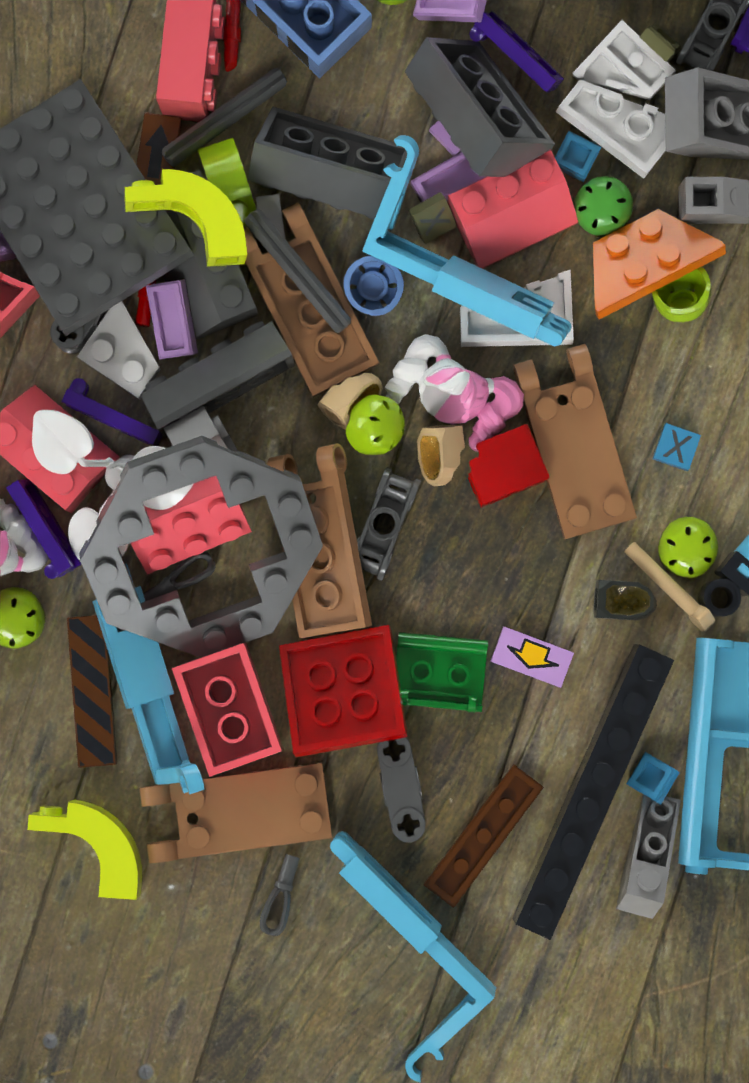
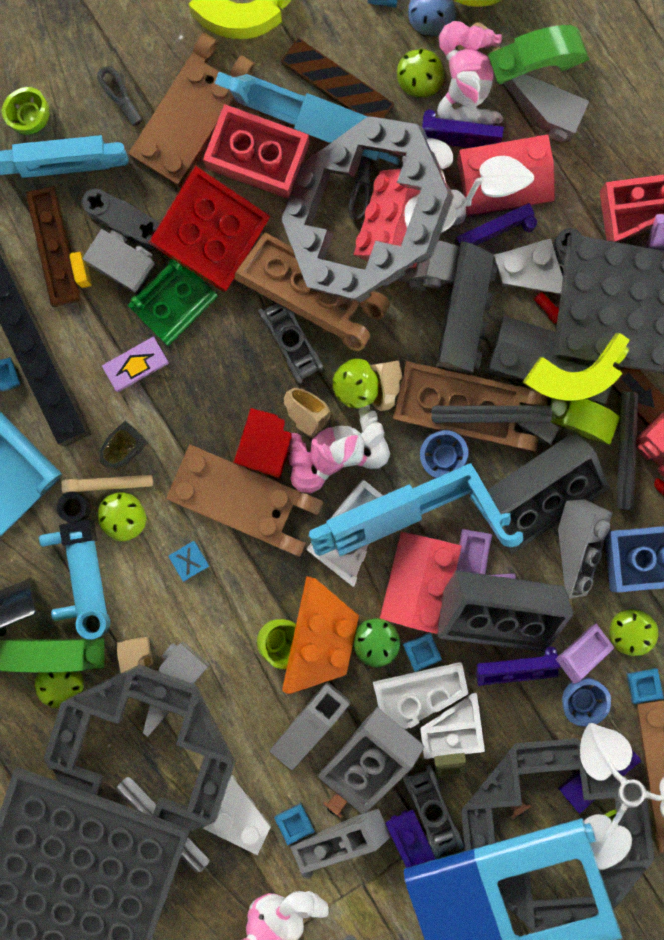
camera: 135 degrees right, 0 degrees up
(171, 319) = (525, 314): lavender tile -> none
(345, 91) = (581, 542): none -> light grey slope
(373, 971) = (32, 115): none -> lime helmet
(432, 218) = (456, 527): olive tile -> none
(445, 755) = (120, 261): none -> light grey brick
(485, 787) = (80, 270): none -> yellow tile

